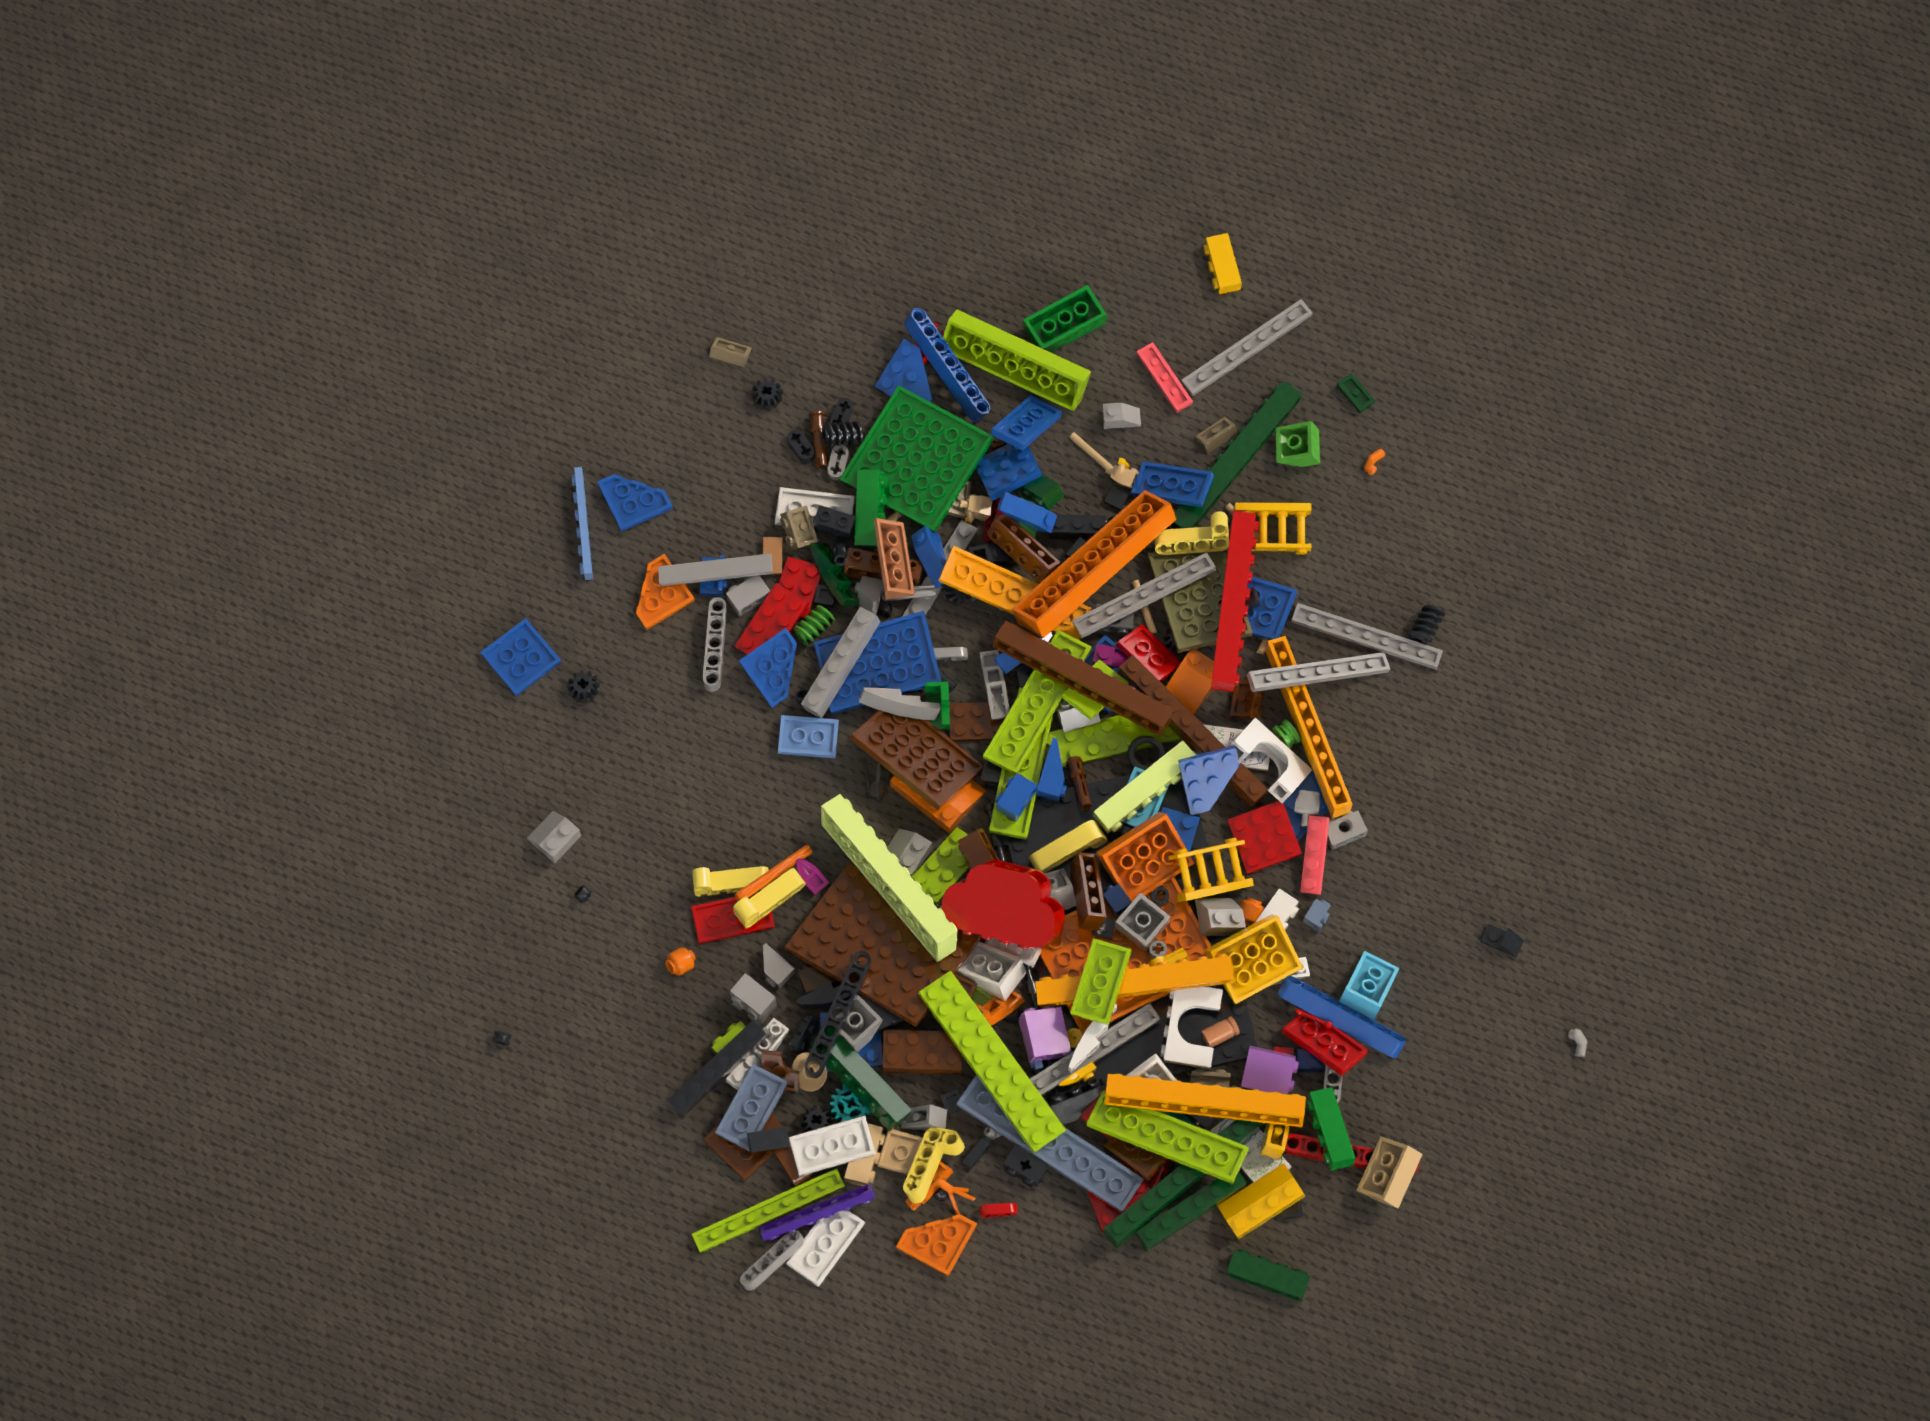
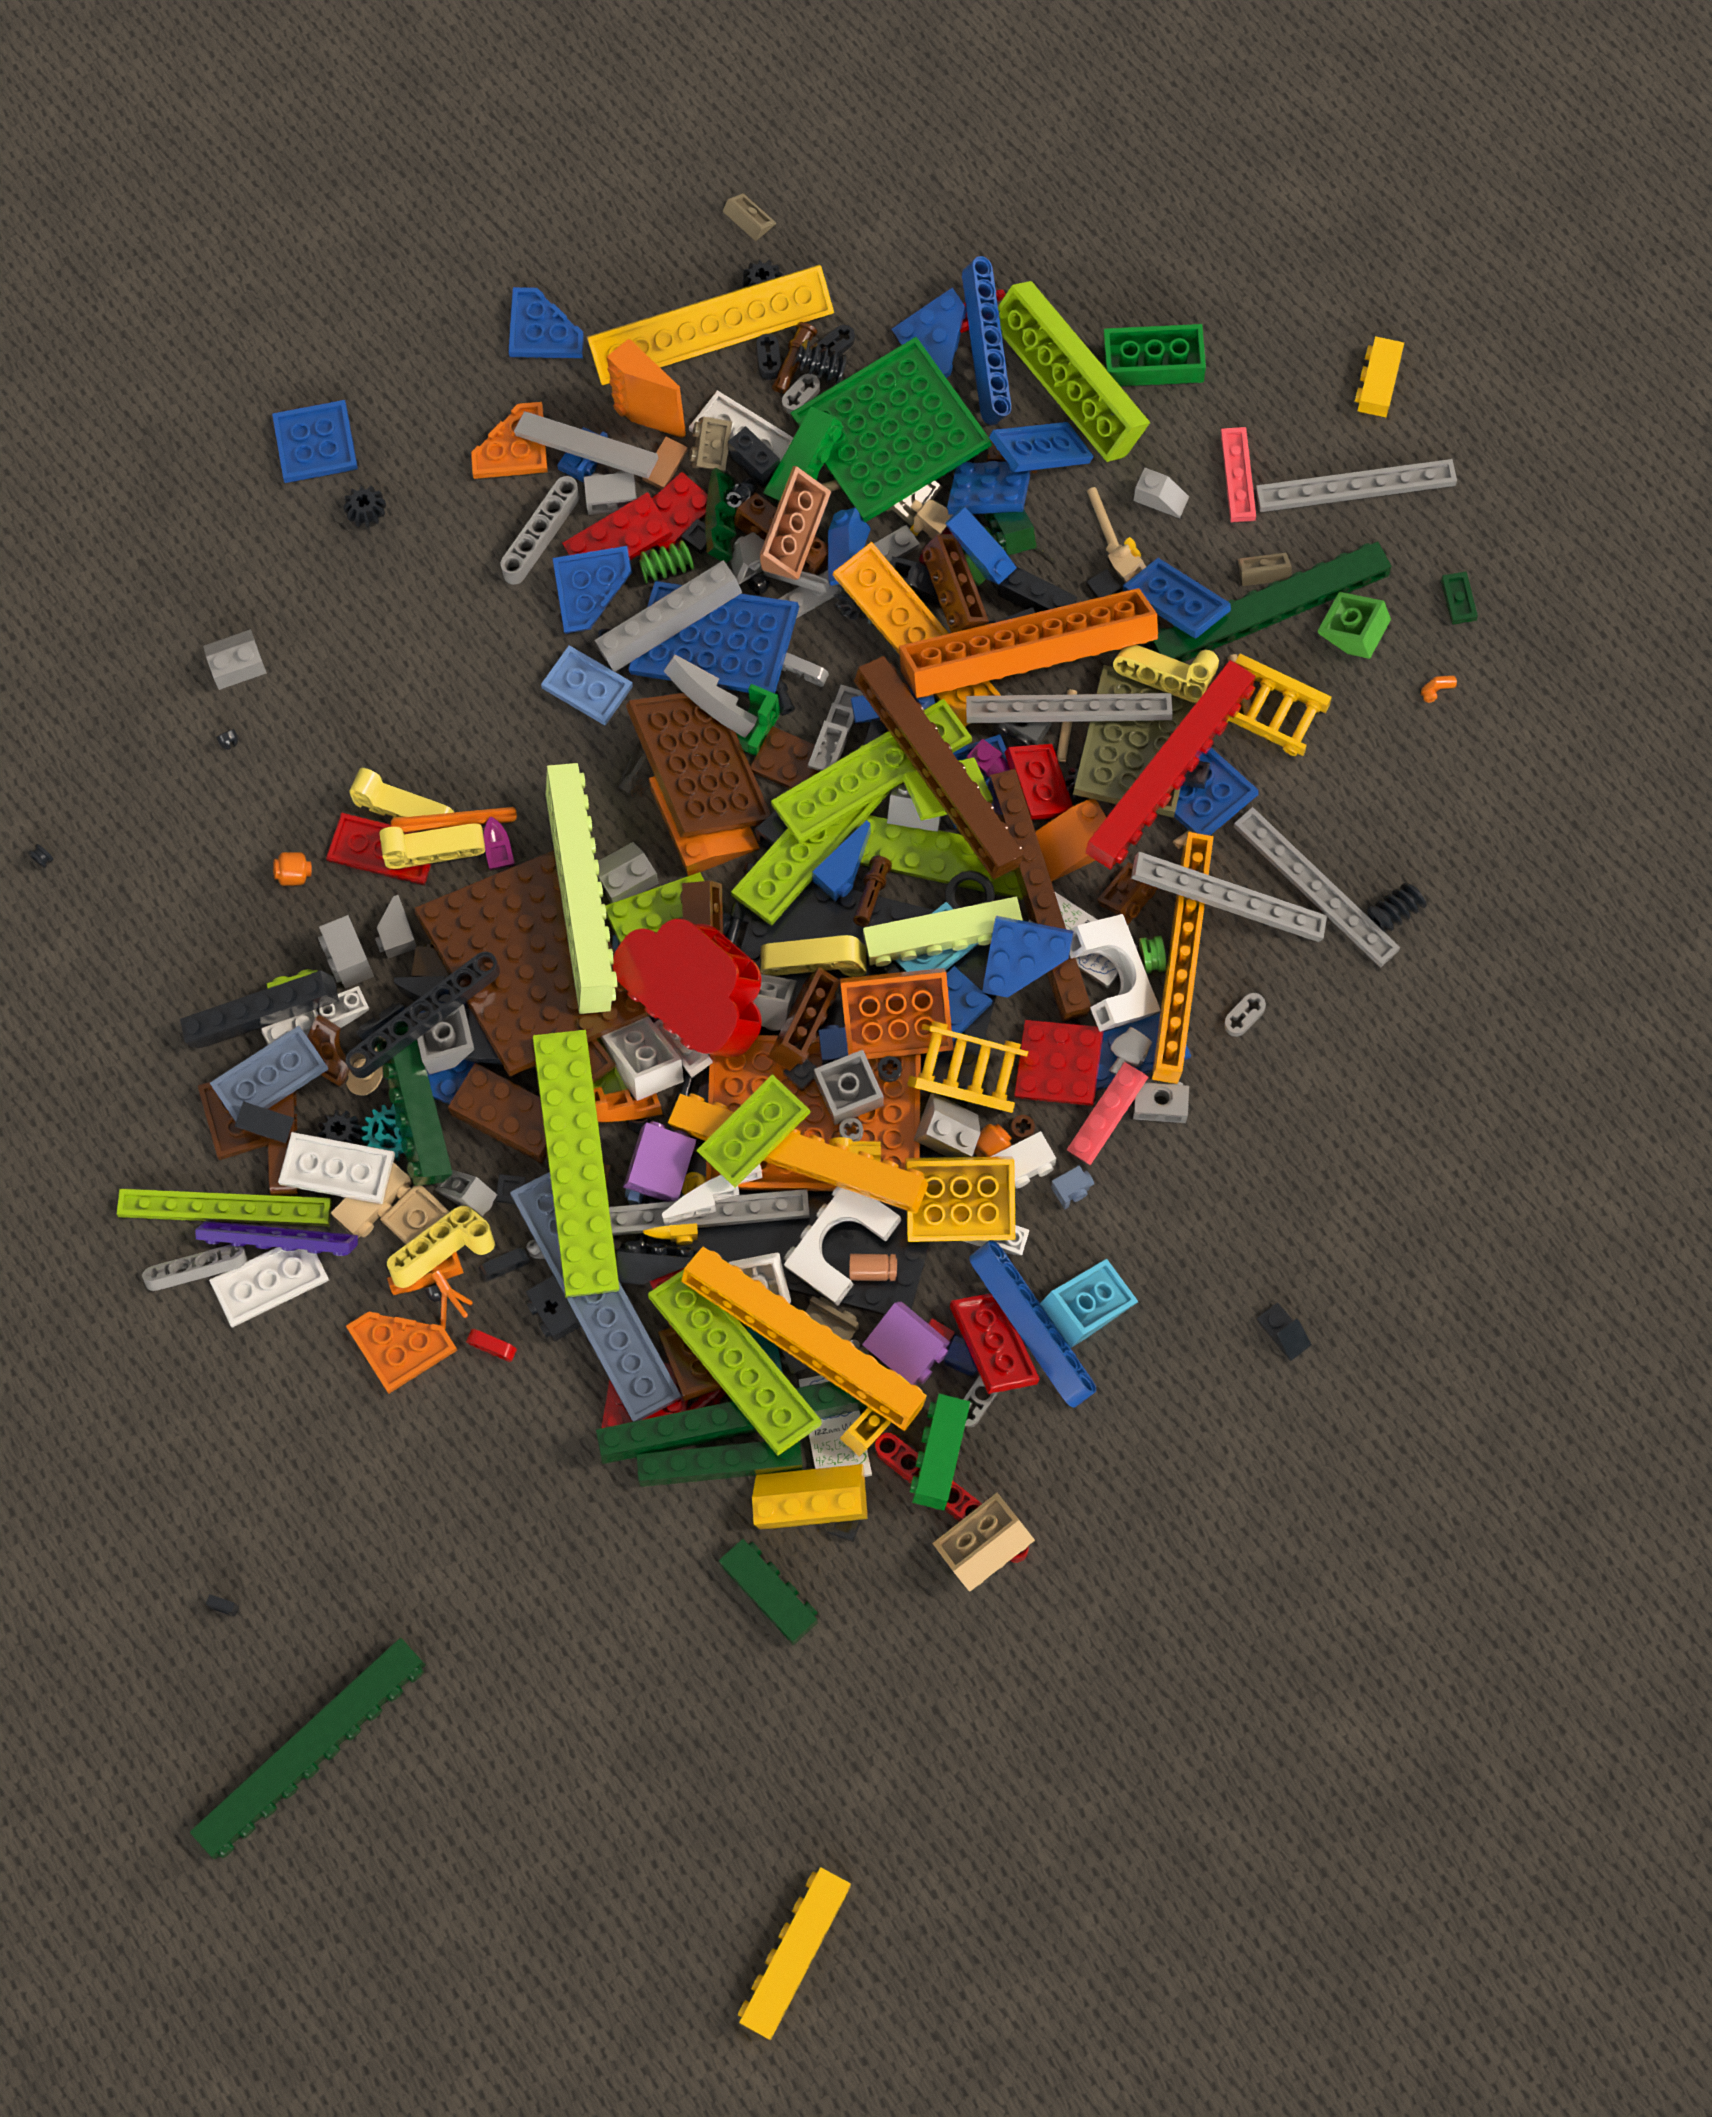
camera: 30 degrees right, 0 degrees up
(581, 516) = (472, 322): medium blue plate -> none
(739, 513) = (644, 391): none -> orange slope
(750, 443) = (720, 320): none -> yellow plate
(1016, 797) = (782, 867): blue brick -> none
(1258, 889) = (1017, 1121): none -> reddish brown bush
(1328, 1024) = (1009, 1324): red hinge -> none
(1370, 746) = (1240, 1010): none -> light grey beam
(1580, 1040) = (1315, 1503): light grey arm -> none

